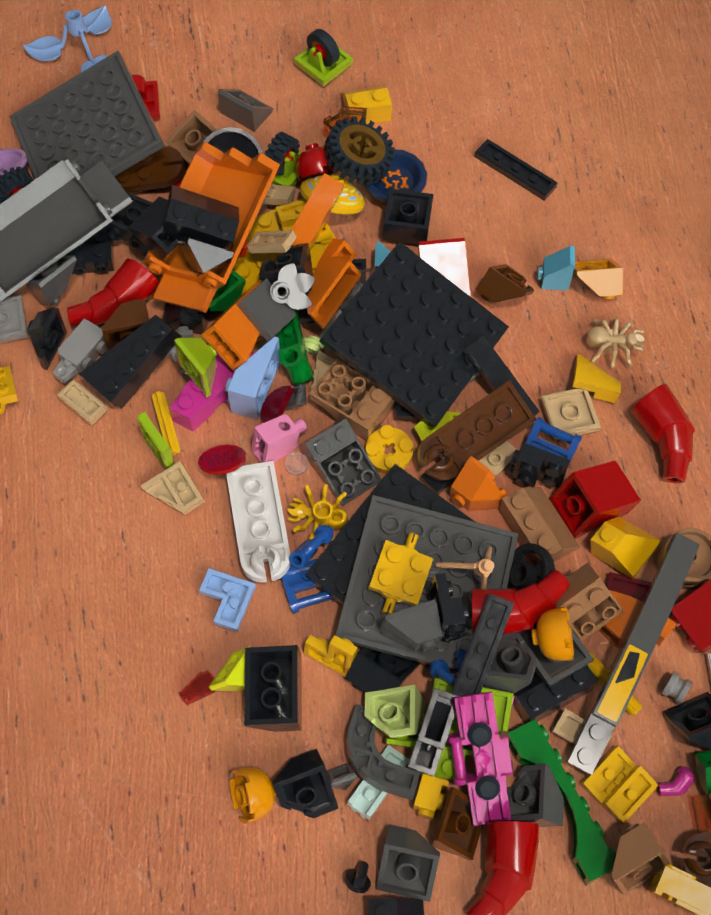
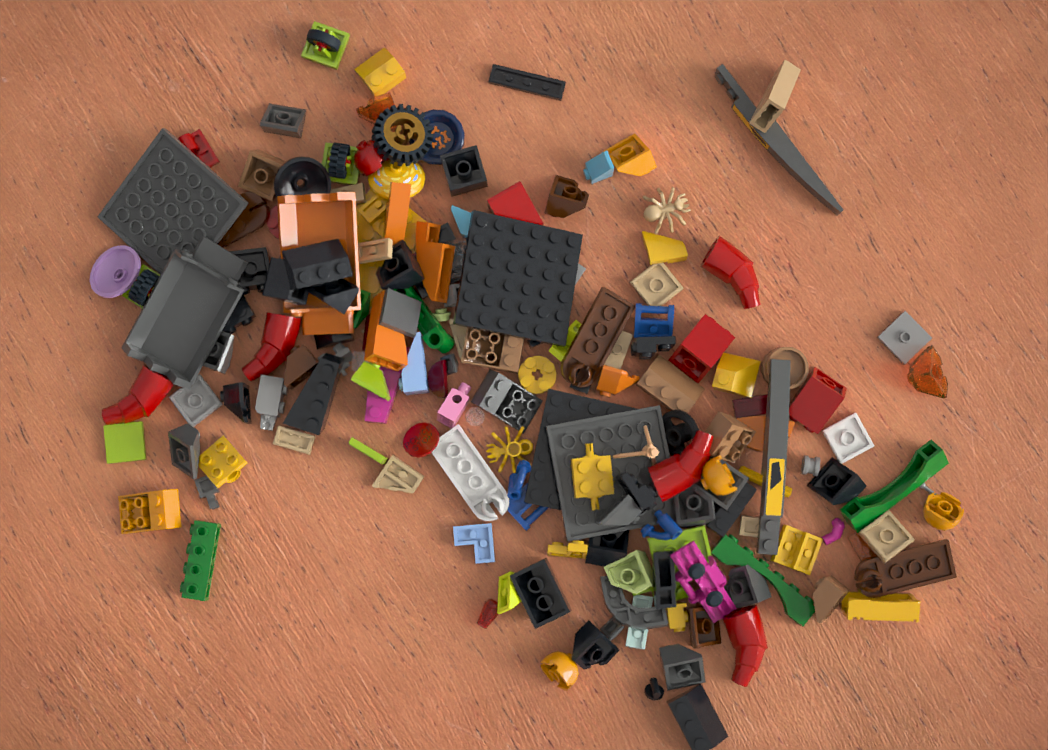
camera: 20 degrees left, 20 degrees up
(49, 47) = (88, 133): light blue plant -> none
(165, 421) = (364, 428): yellow axle -> none
(295, 285) = (413, 287): plate -> none
(483, 646) = (673, 510): black tile -> none
(494, 369) = (590, 280): black tile -> none

